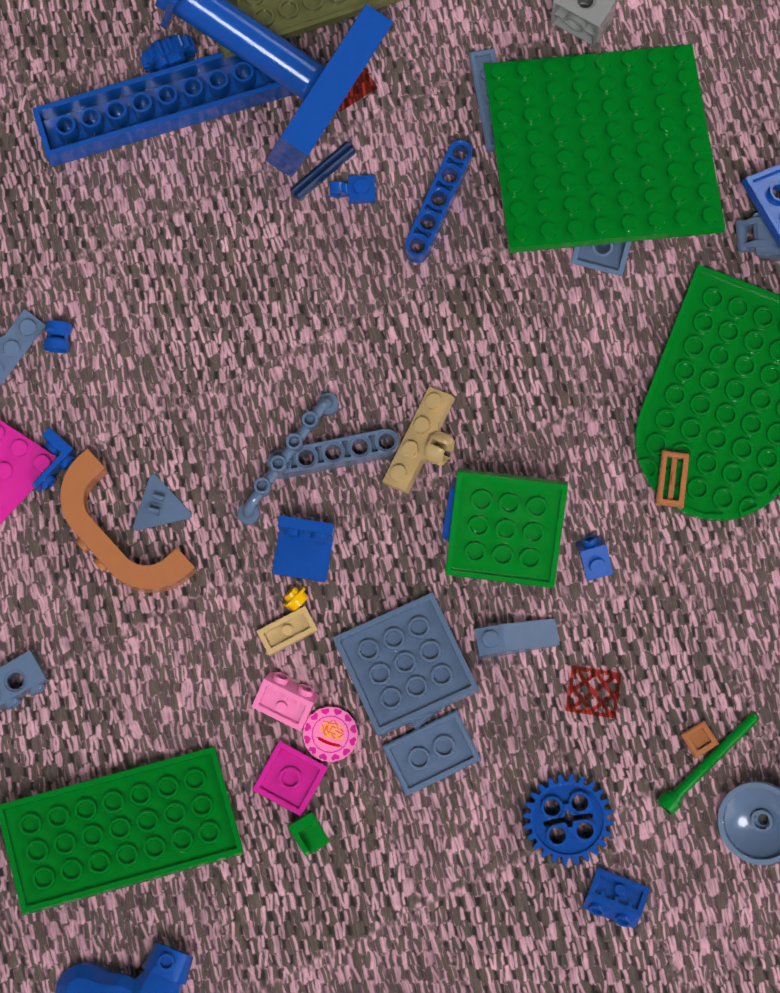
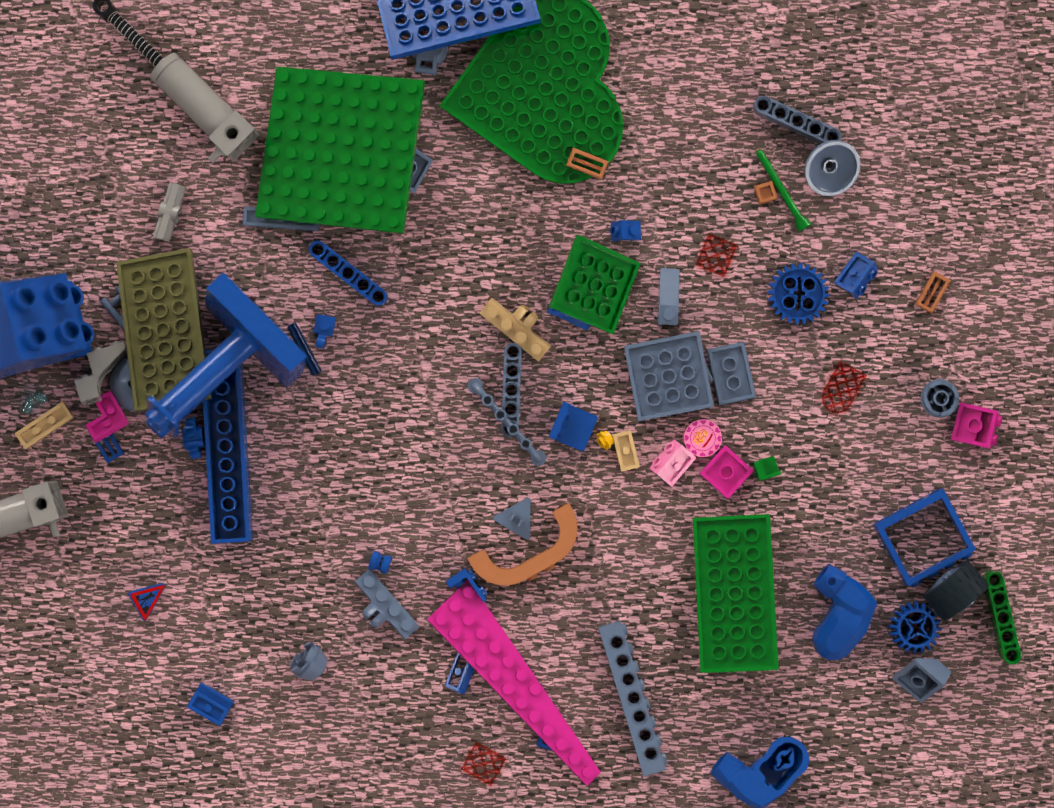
camera: 80 degrees left, 10 degrees up
(441, 915) = (838, 389): none -> clear red window

